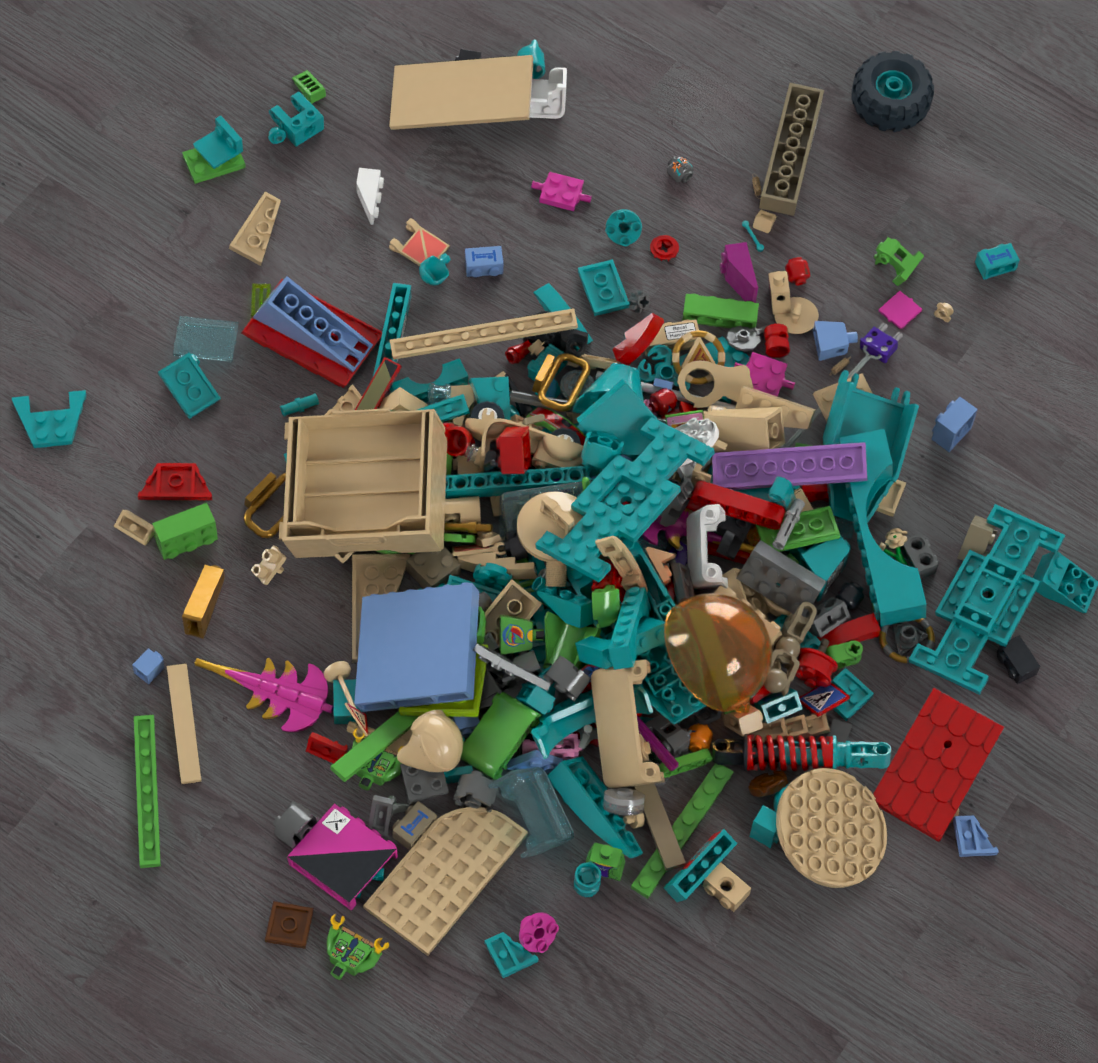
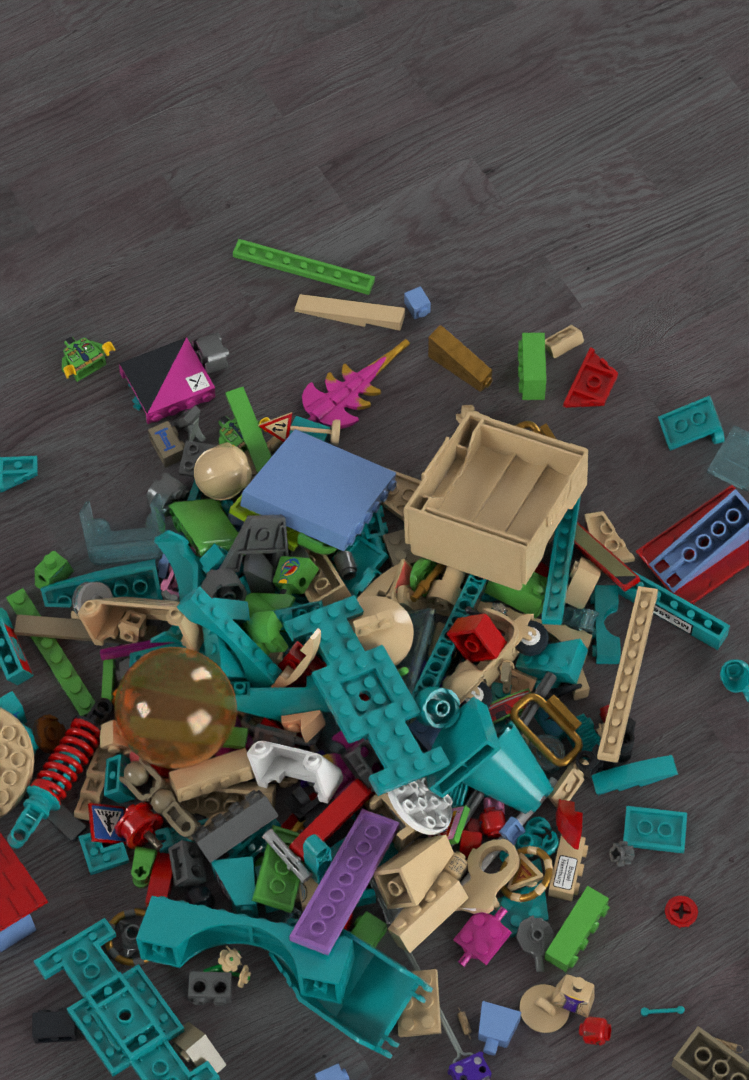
camera: 120 degrees right, 0 degrees up
(54, 426) = (696, 308): teal wing -> none
(289, 925) = (133, 327): reddish brown tile -> none
(299, 405) = (632, 508): teal pin -> none
(325, 748) = (278, 401): red plate -> none
(444, 874) = (111, 451): tan plate -> none
(457, 439) = (523, 603): red piece -> none
(484, 261) = (731, 728): medium blue brick -> none
(537, 932) = (21, 494): dark pink plate -> none
(587, 879) = (41, 547): teal wheel -> none
(623, 227) = (719, 876): teal plate -> none
(739, 270) = (612, 964): magenta slope -> none
(764, 221) = (677, 1032): tan slope -> none
(776, 340) = (510, 964): red wheel -> none
(890, 502) = (288, 999): tan tile -> none

